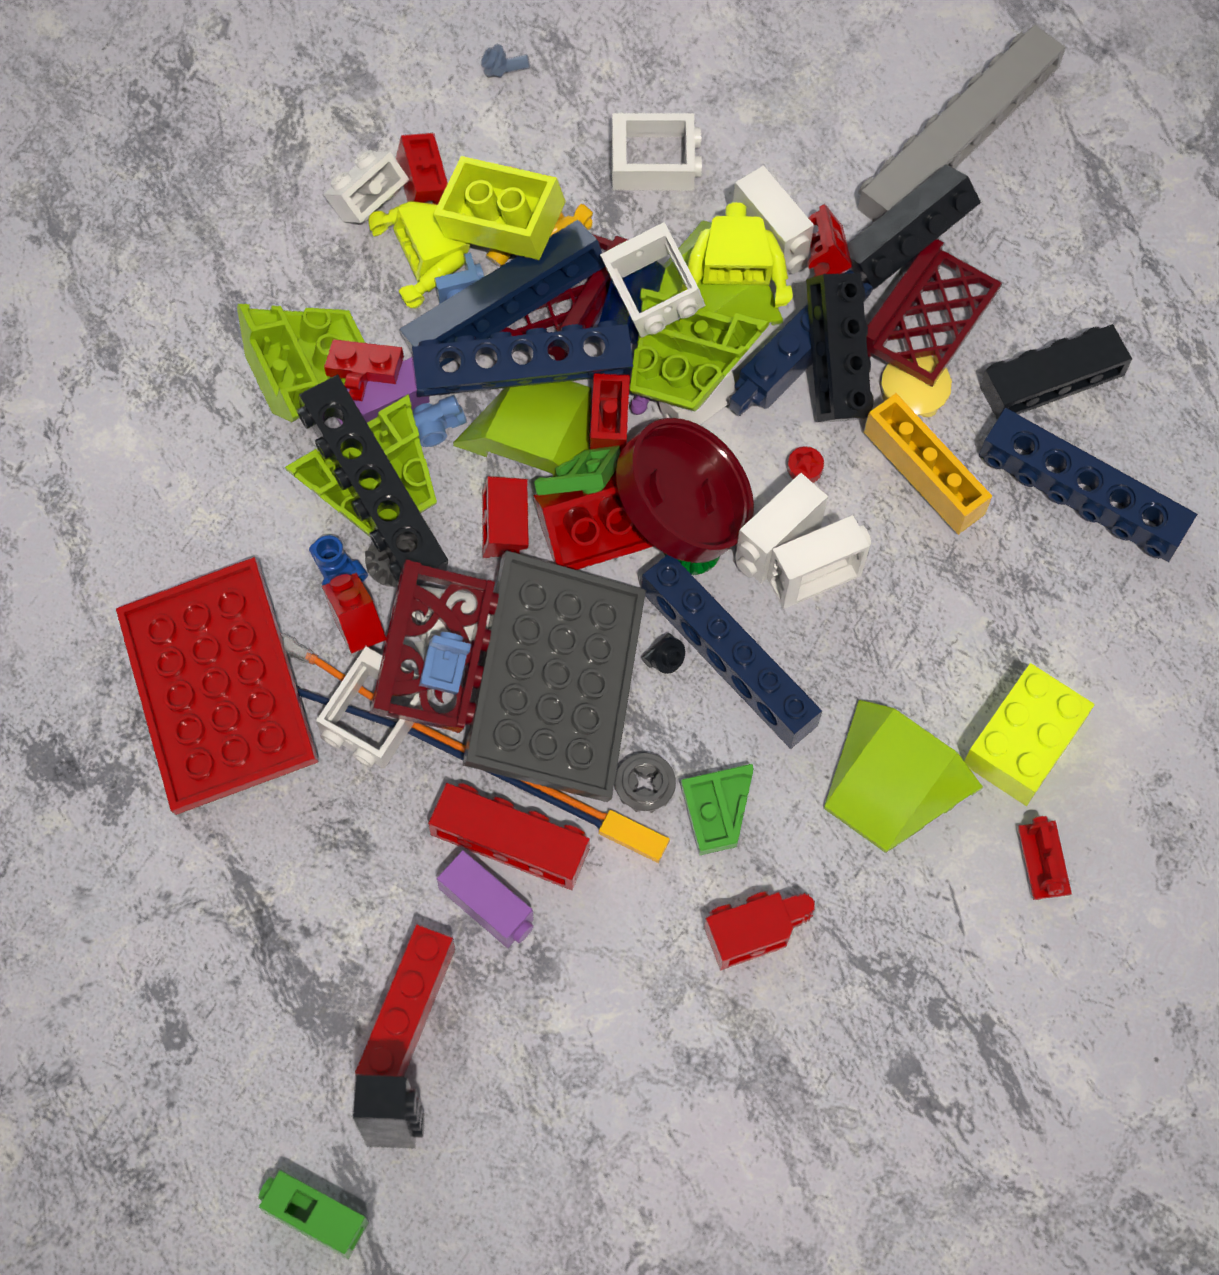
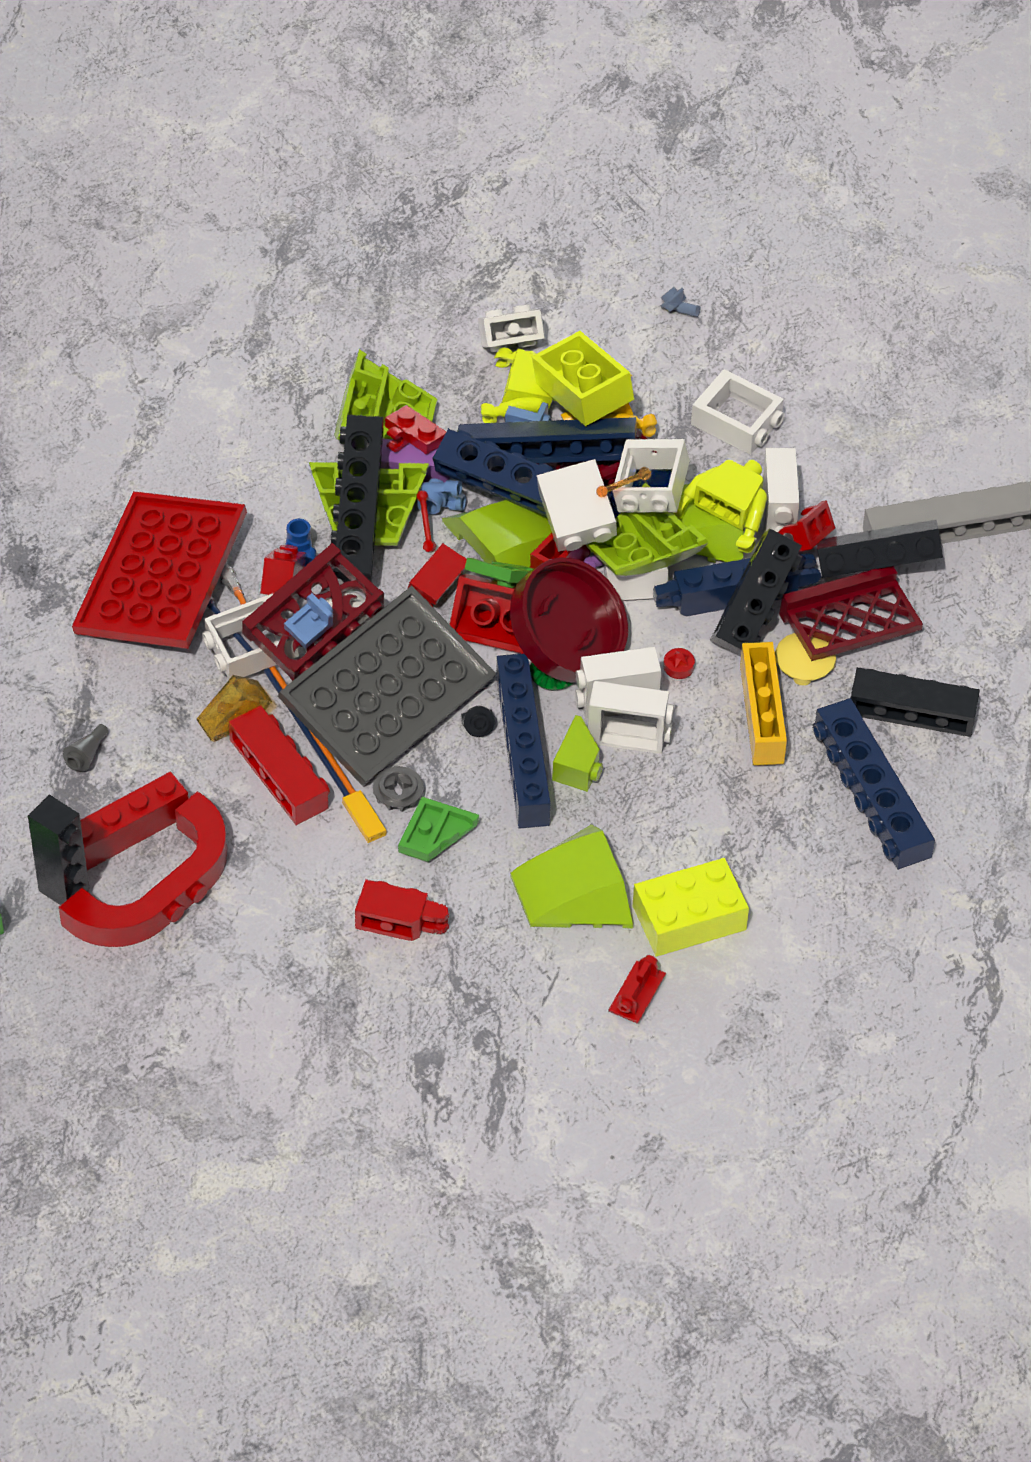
camera: 35 degrees right, 15 degrees down
(294, 955) = (81, 753): none -> dark grey cone
(414, 800) = (233, 700): none -> clear yellow slope
(423, 166) = (563, 325): red hinge -> none
(464, 481) = (428, 545): none -> red hinge
(475, 1146) = (165, 902): none -> red arch
(486, 900) = (231, 791): medium lavender brick -> none
(609, 359) = (574, 508): none -> white brick
(634, 330) = (644, 474): none -> clear orange hinge
(795, 633) = (577, 758): none -> lime slope

